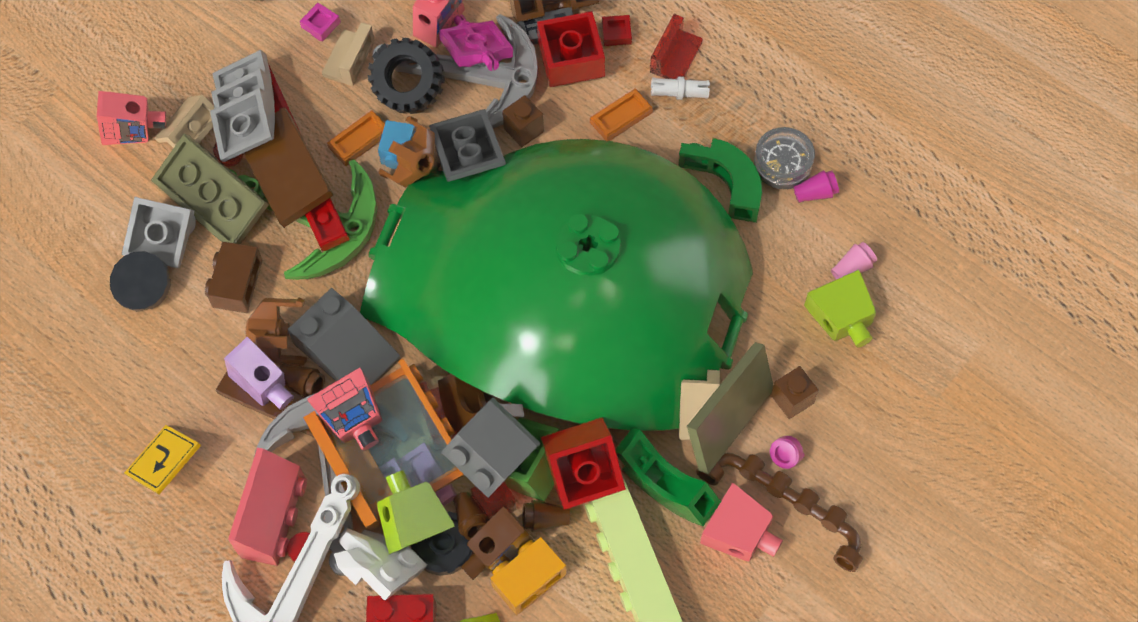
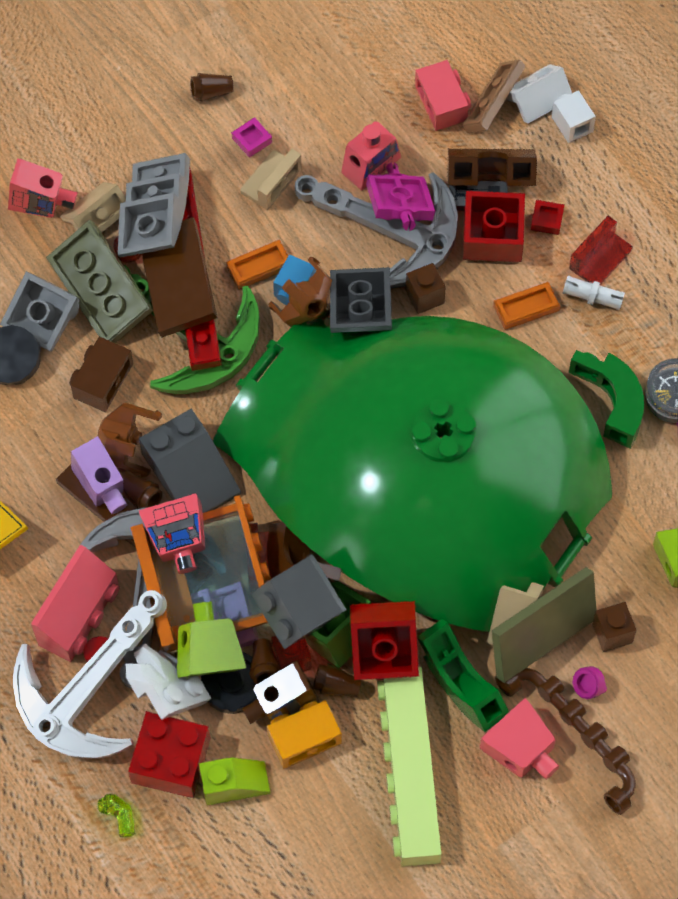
camera: 15 degrees right, 0 degrees up
(389, 59) = (298, 207): black tyre -> none

